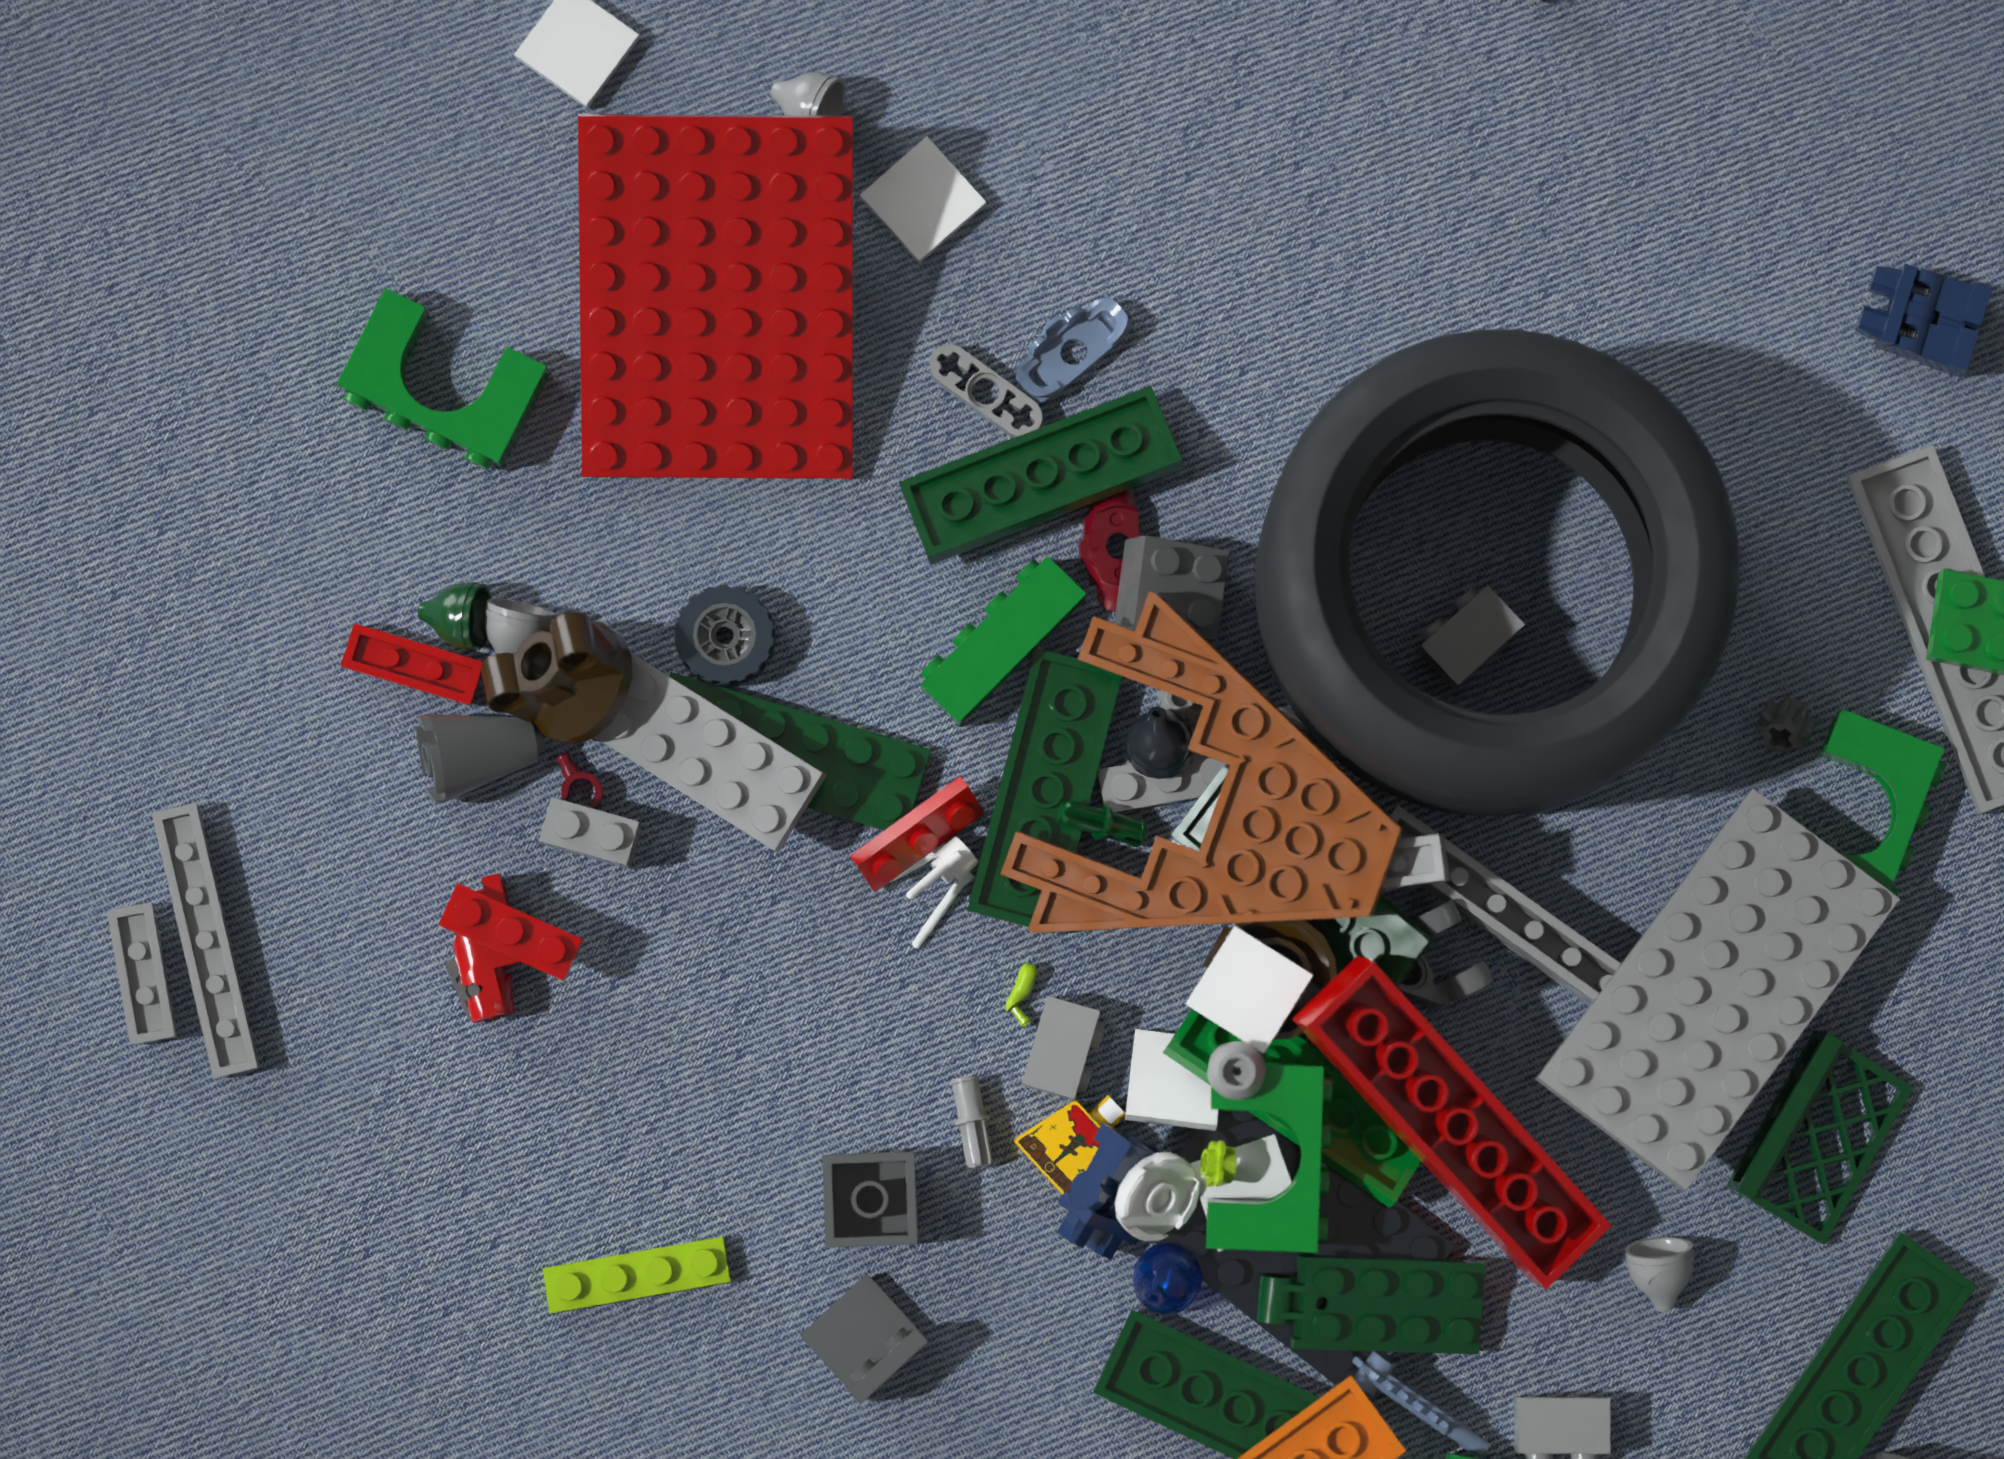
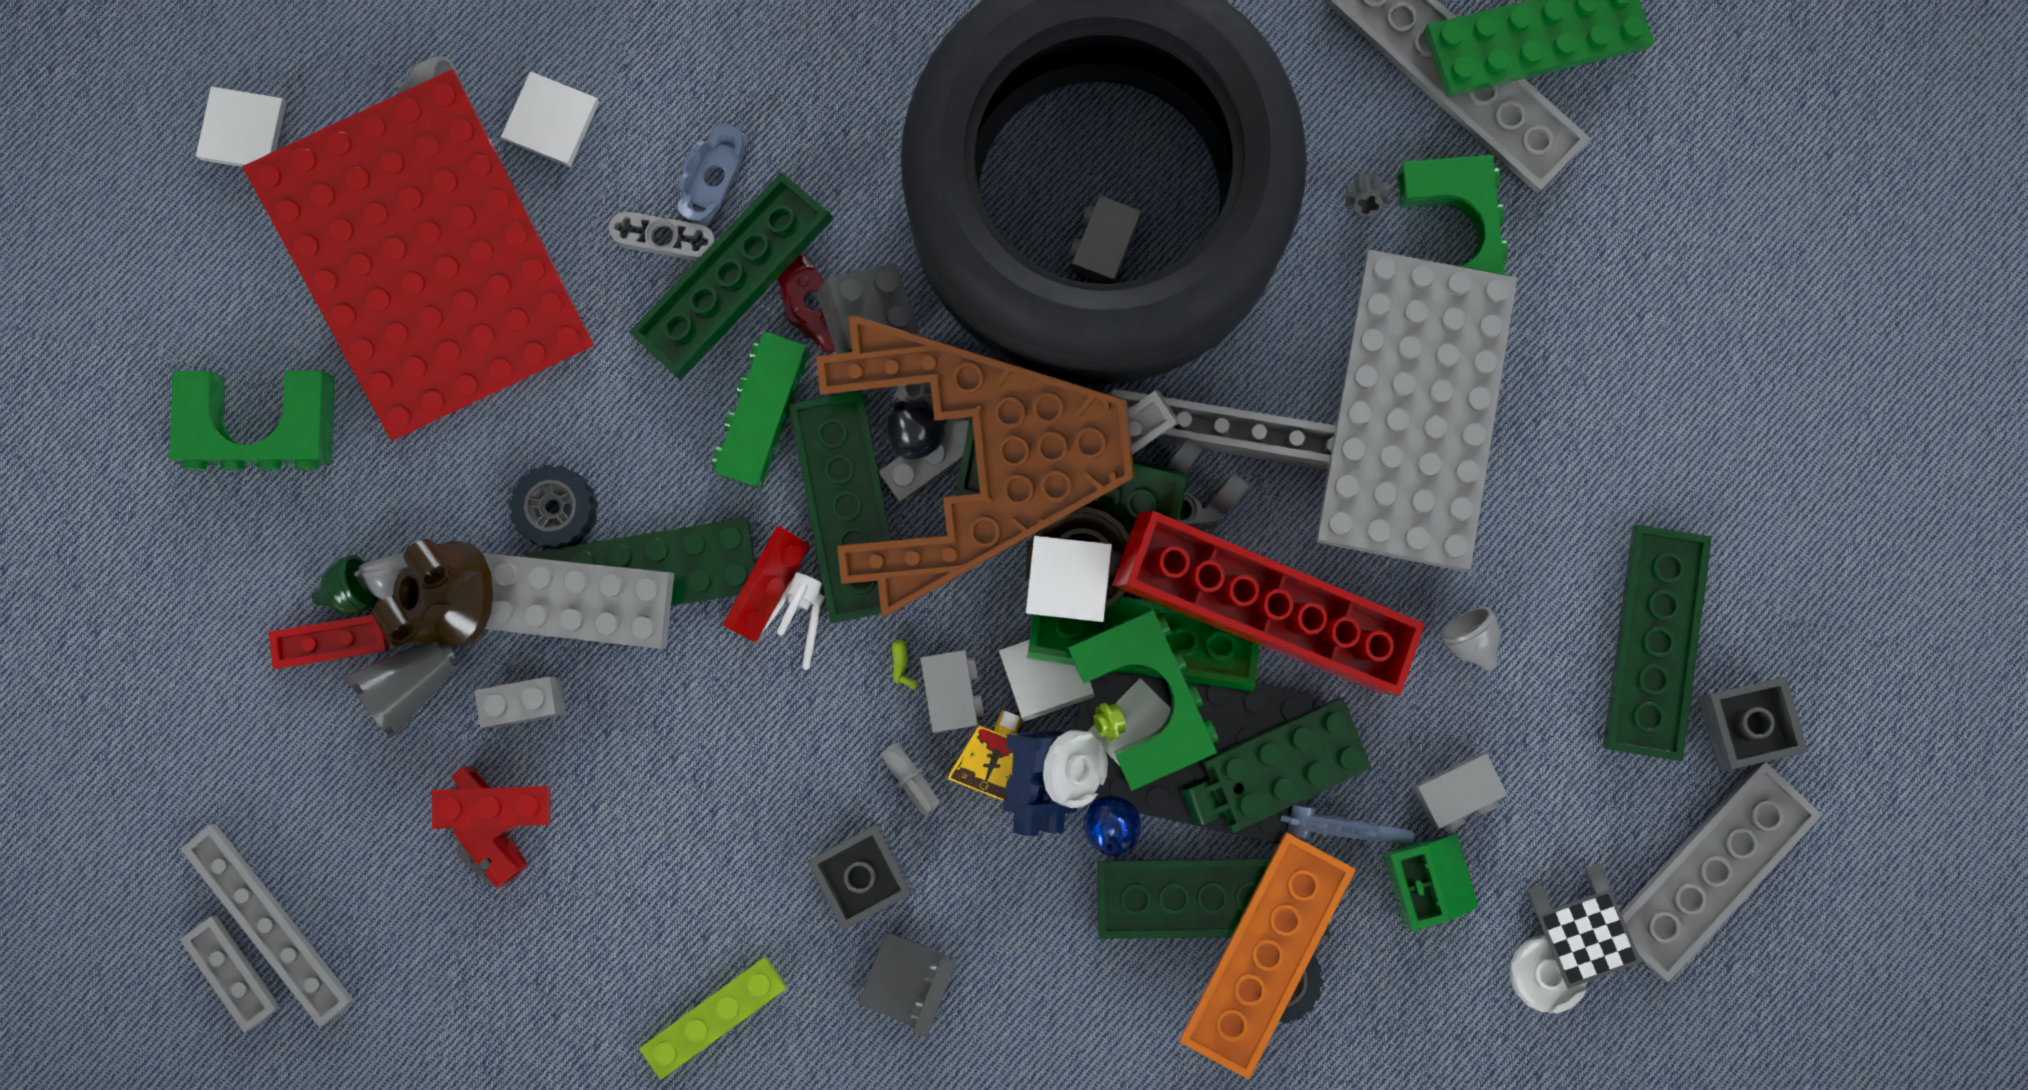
camera: 20 degrees left, 0 degrees up
(573, 774) = (489, 666): dark red piece -> none
(1102, 822) = (899, 508): dark green axle -> none
(1236, 1055) = (1080, 635): light grey plate -> none
(1786, 1116) = (1510, 476): dark green fence -> none

